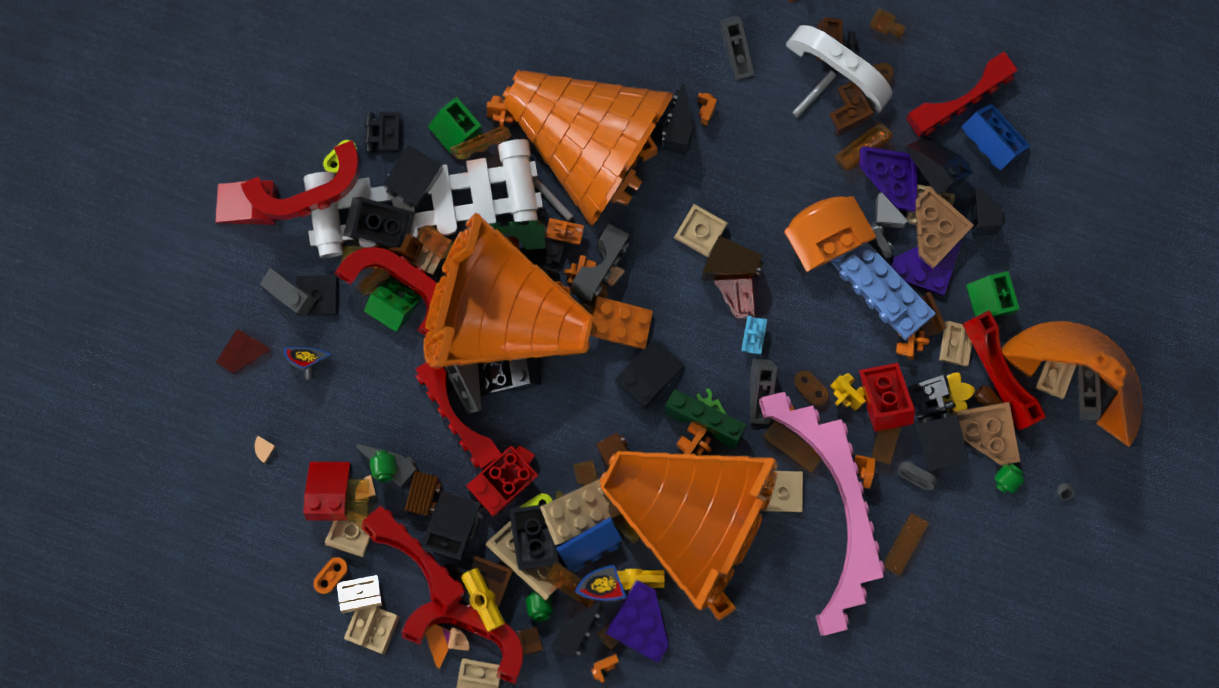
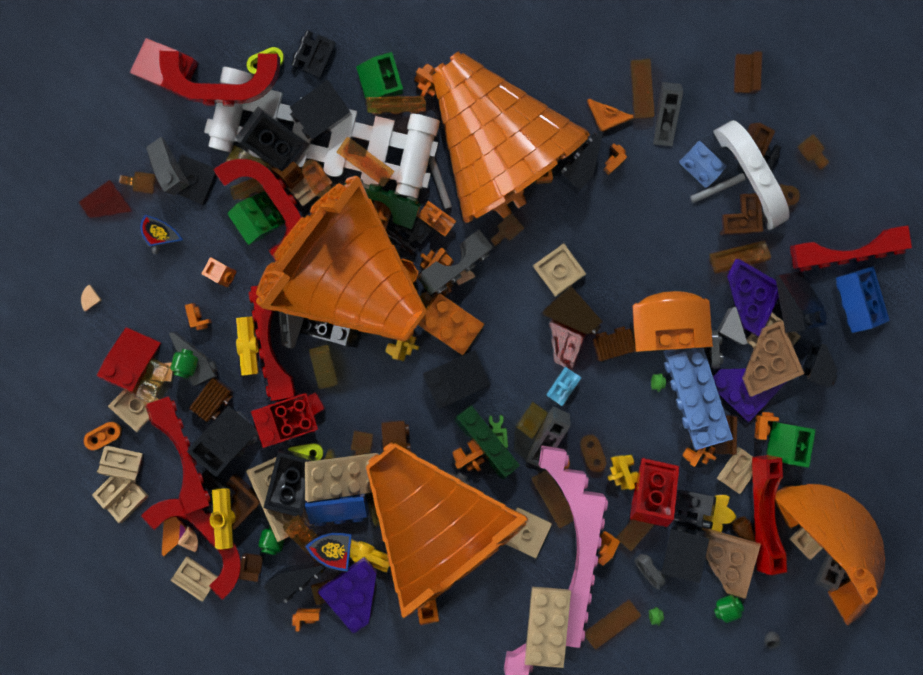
camera: 25 degrees right, 10 degrees up
(269, 318) = (141, 182): none -> clear orange plate
(371, 419) = (193, 315): none -> orange bracket
(378, 370) = (219, 272): none -> orange bracket
(435, 428) = (247, 345): none -> yellow piece
(471, 204) = (365, 161): none -> clear orange plate
(517, 416) = (323, 366): none -> clear yellow slope
(586, 363) = (401, 348): none -> yellow hips
(635, 213) = (508, 228): none -> clear orange plate
(681, 72) = (607, 116): none -> orange tile
(703, 34) = (642, 88): none -> clear orange plate
(738, 382) = (531, 420): none -> clear yellow slope
(784, 276) = (613, 344): none -> reddish brown brick
(790, 78) = (702, 164): none -> medium blue bracket
(841, 294) = (658, 382): none -> bright green plate
(843, 568) = (547, 627): none -> tan plate
(943, 517) = (656, 616): none -> bright green plate
(958, 293) = (762, 427): none -> orange bracket

